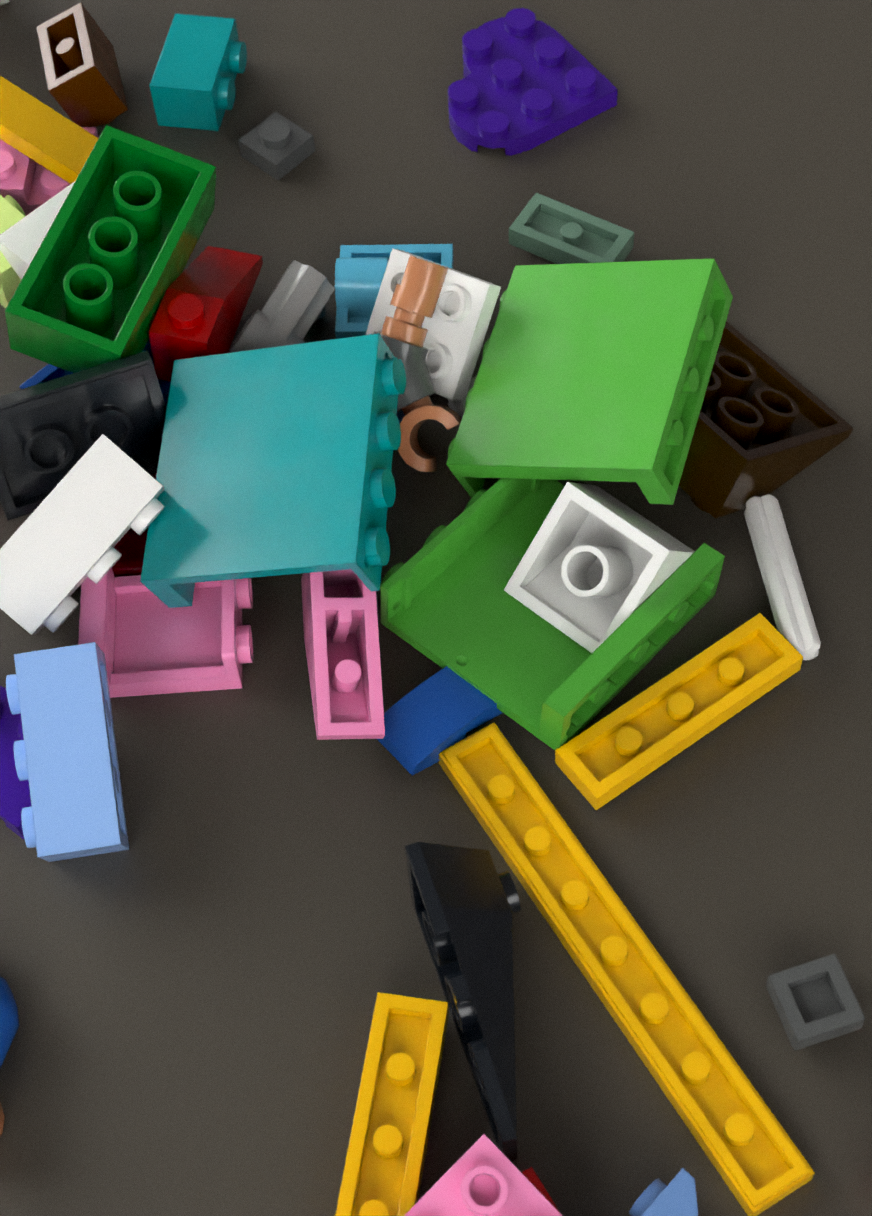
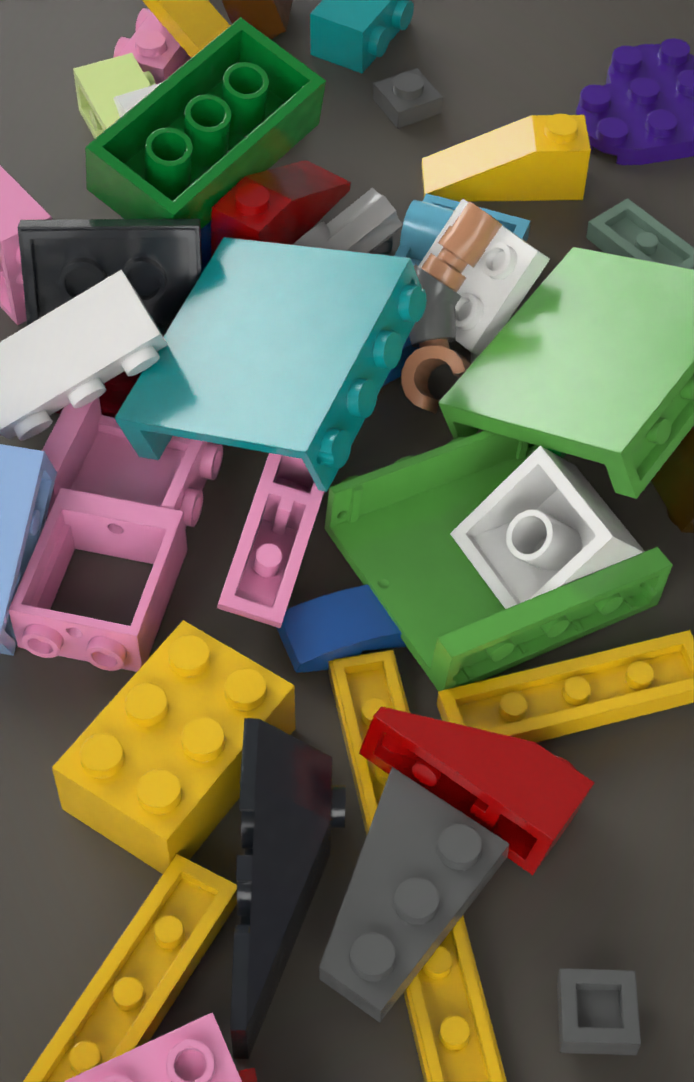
camera: 15 degrees right, 5 degrees down
(183, 691) = (87, 524): none -> bright pink window
(331, 890) = (169, 747): none -> yellow brick
(412, 186) = (518, 162): none -> yellow slope
(605, 952) = (406, 893): none -> dark grey wing
(640, 824) = (488, 776): none -> red slope

